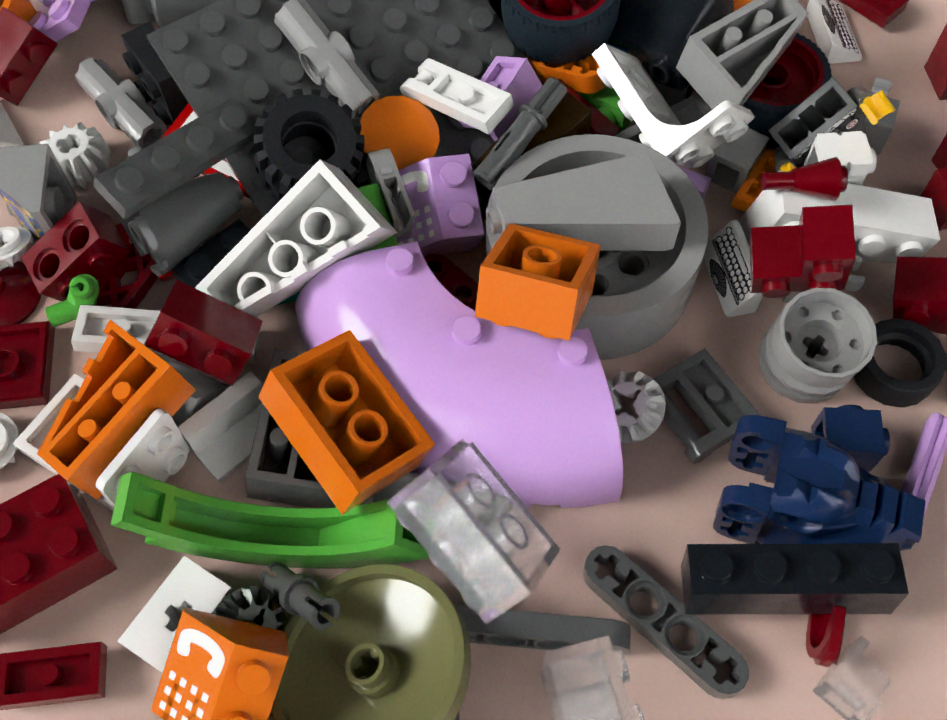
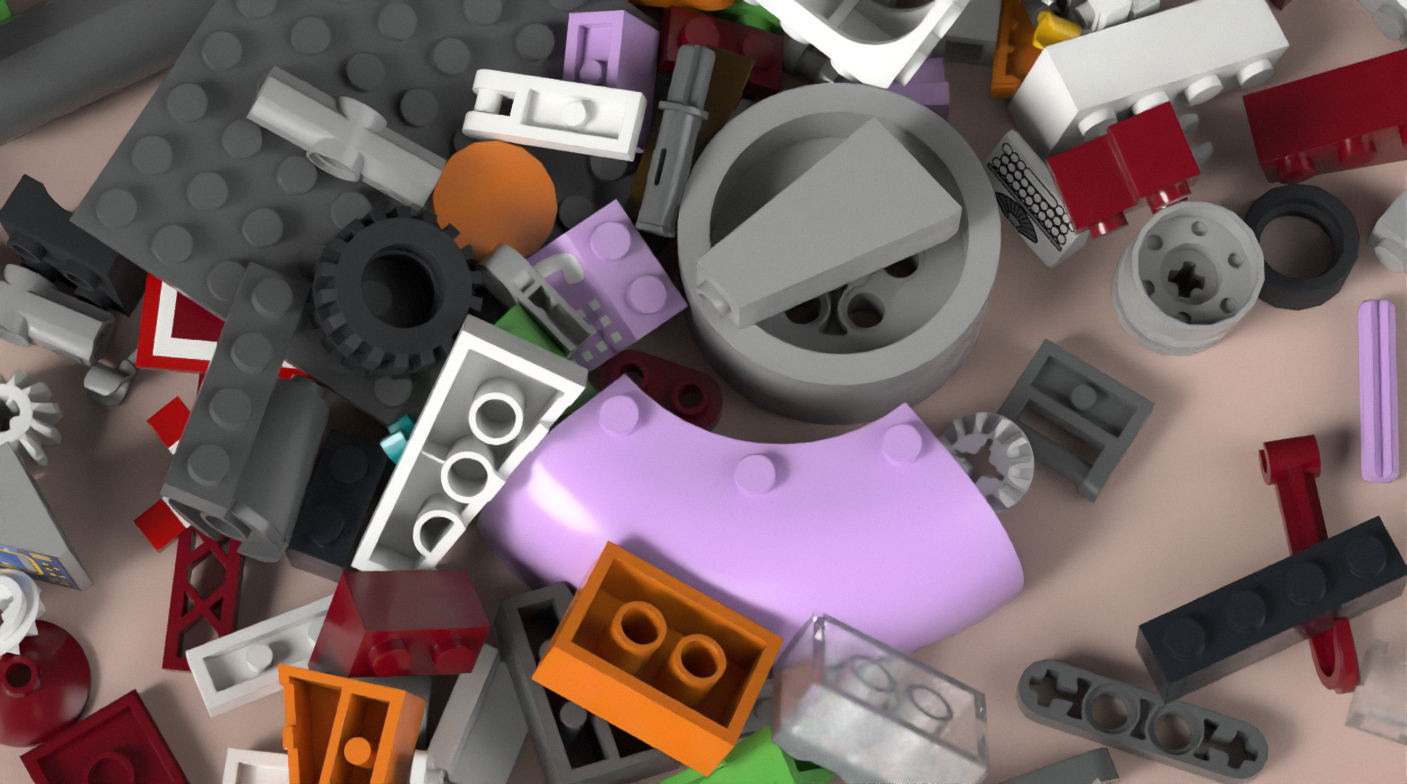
camera: 25 degrees left, 10 degrees up
(76, 245) = (113, 570): dark red brick -> none
(83, 291) = (172, 635): bright green arm -> none
(537, 281) = (822, 373): orange brick -> none
(815, 493) = (1266, 490): dark blue animal -> none
(820, 179) = (1104, 44): dark red cone -> none
(856, 431) = (1273, 384): dark blue brick -> none

